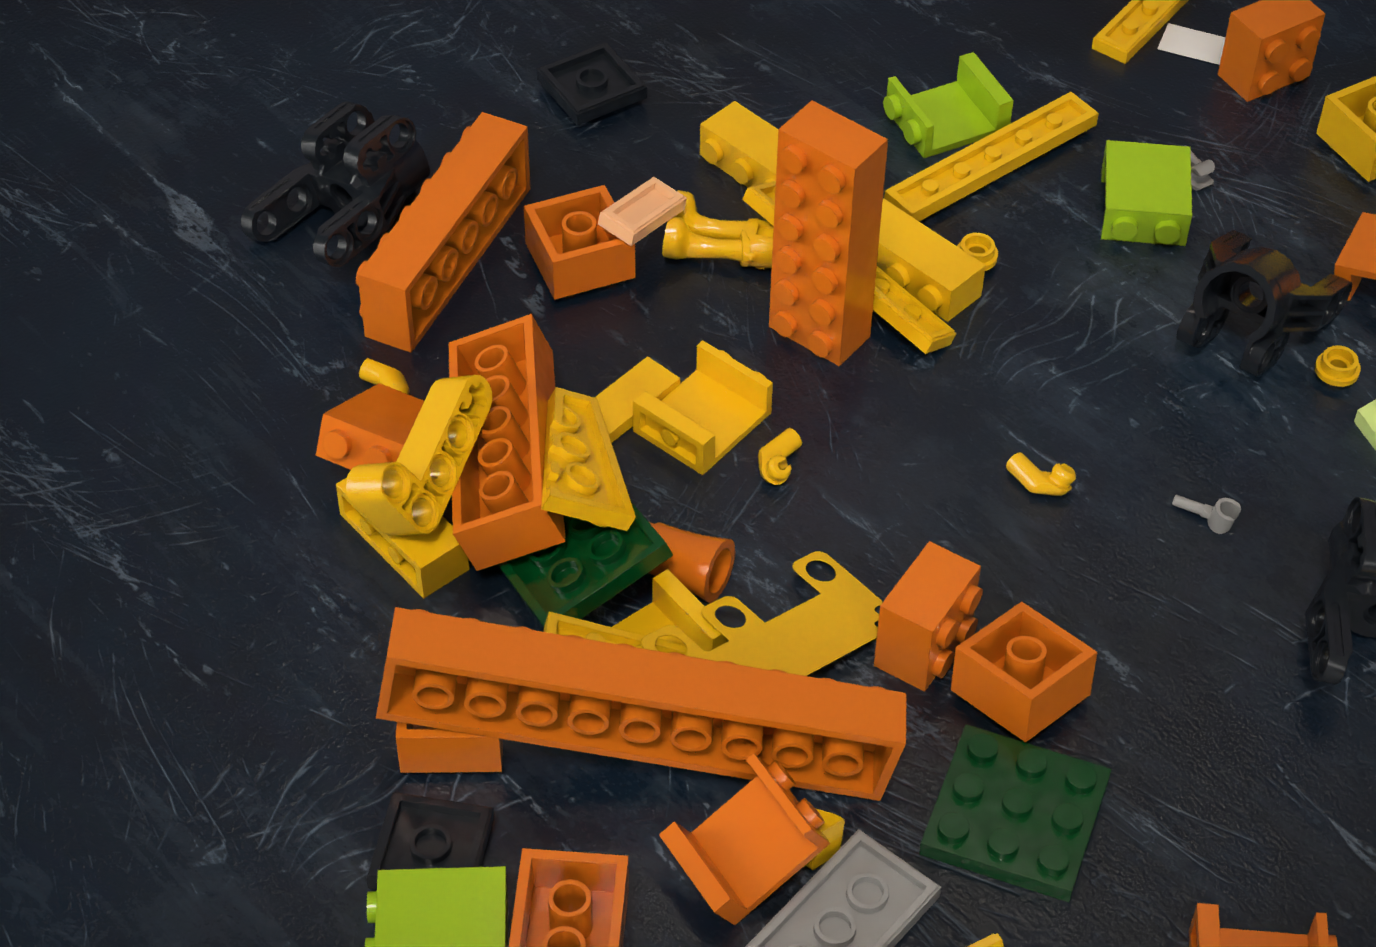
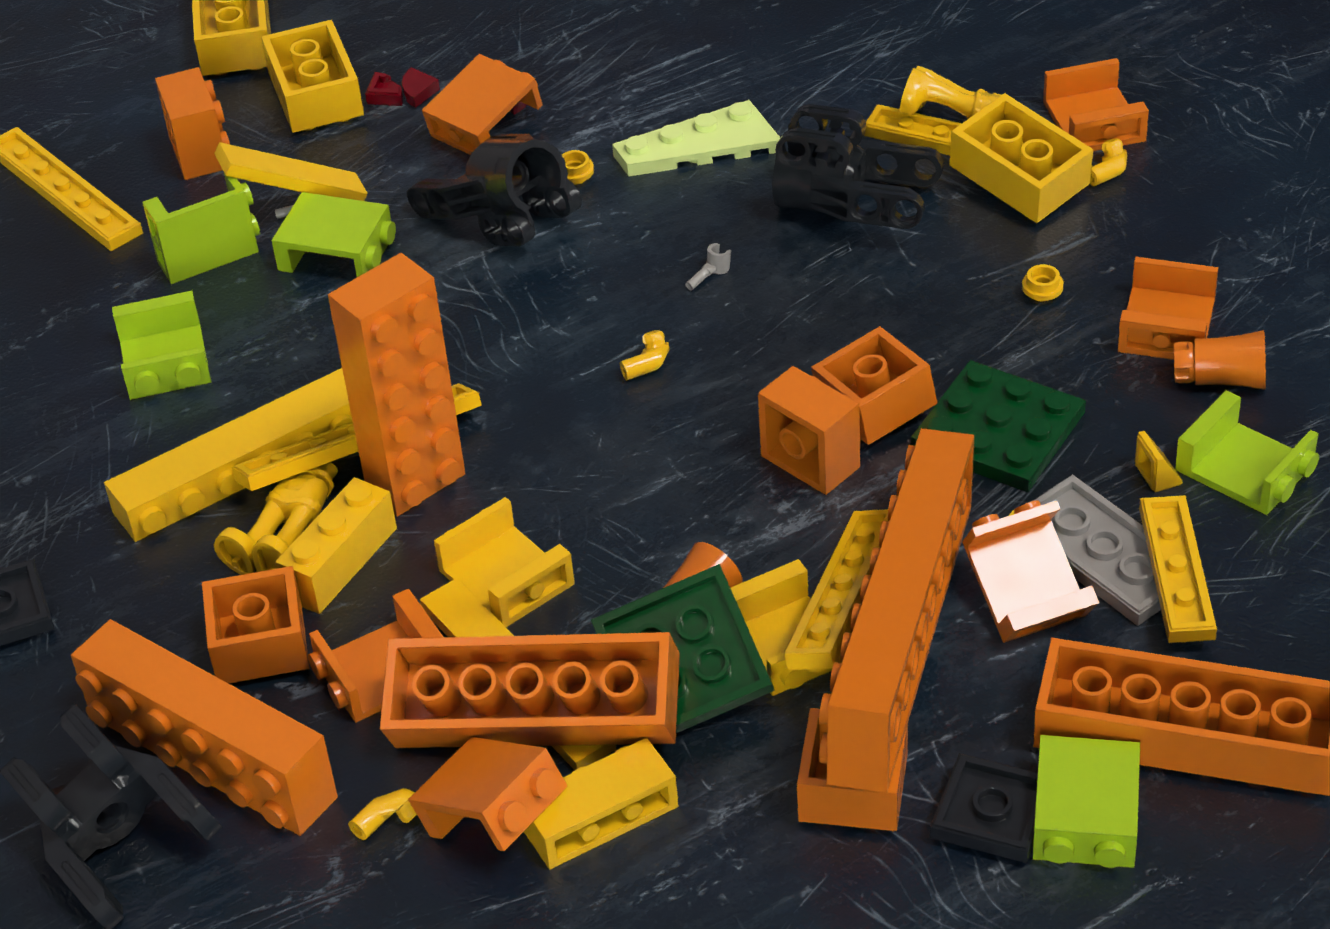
camera: 75 degrees left, 5 degrees down
(415, 489) = (562, 728): yellow beam -> none
(581, 350) = (358, 668): none -> orange panel
(581, 465) = (626, 612): yellow wing -> none
(642, 211) = (256, 553): light nougat tile -> none
(699, 280) = (339, 542): none -> yellow brick
(773, 456) = (571, 526): yellow arm -> none
(799, 638) = (813, 529): yellow piece -> none
(992, 157) = (242, 326): yellow plate -> none
(1124, 105) = (203, 233): none -> lime panel
(1192, 43) = (141, 184): white sticker -> none
(1205, 128) = (288, 173): none -> yellow tile
(1281, 824) = (1042, 283): none -> yellow plate

